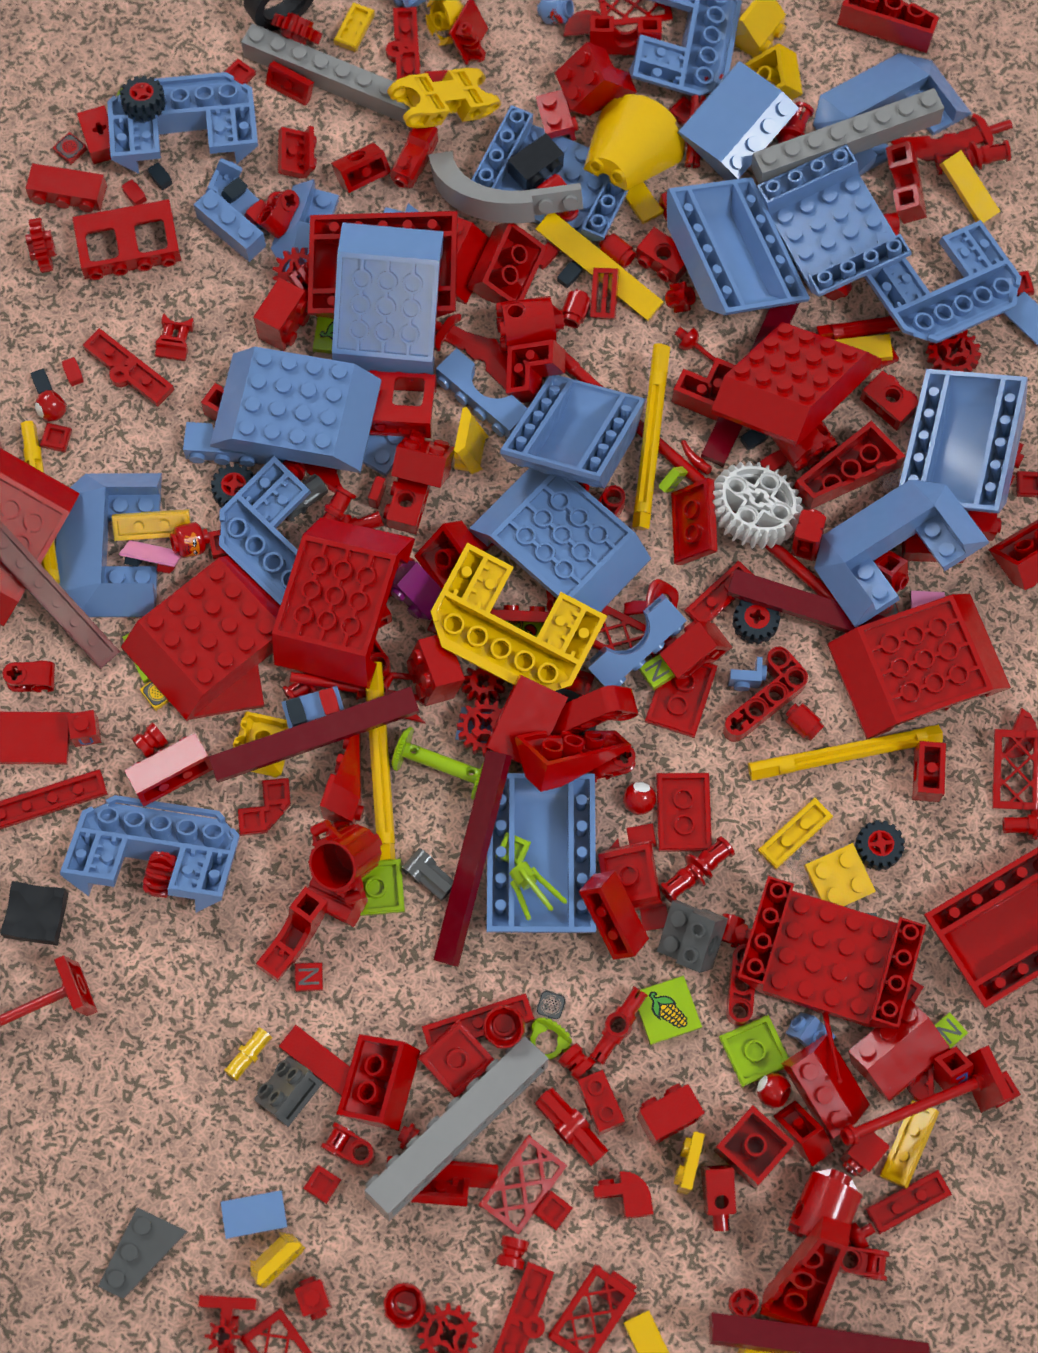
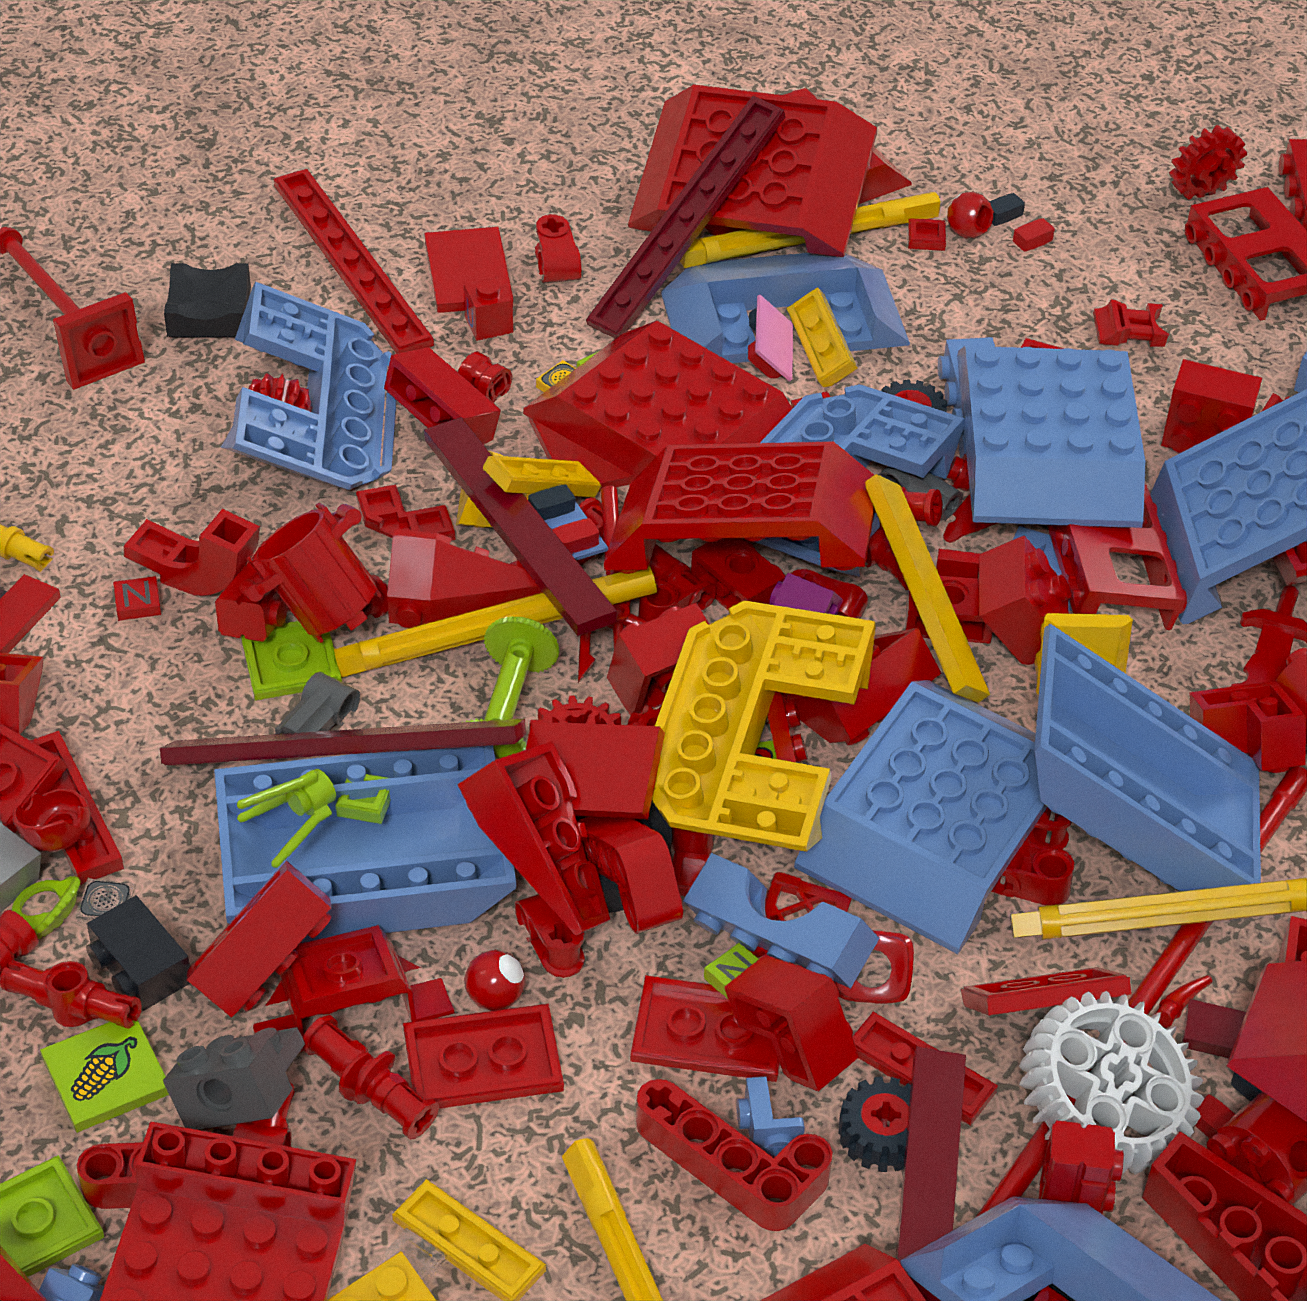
camera: 80 degrees right, 25 degrees down
(127, 368) = (1060, 284): red hinge -> none
(189, 540) = (807, 370): red head -> none
(271, 714) = (535, 474): none -> yellow tile
(410, 511) = (927, 589): none -> yellow tile
(457, 375) = (1199, 645): medium blue arch -> none
(595, 987) = (137, 953): none -> black brick
(673, 479) = (1121, 954): lime tile -> none
(804, 721) = (696, 1226): red brick -> none

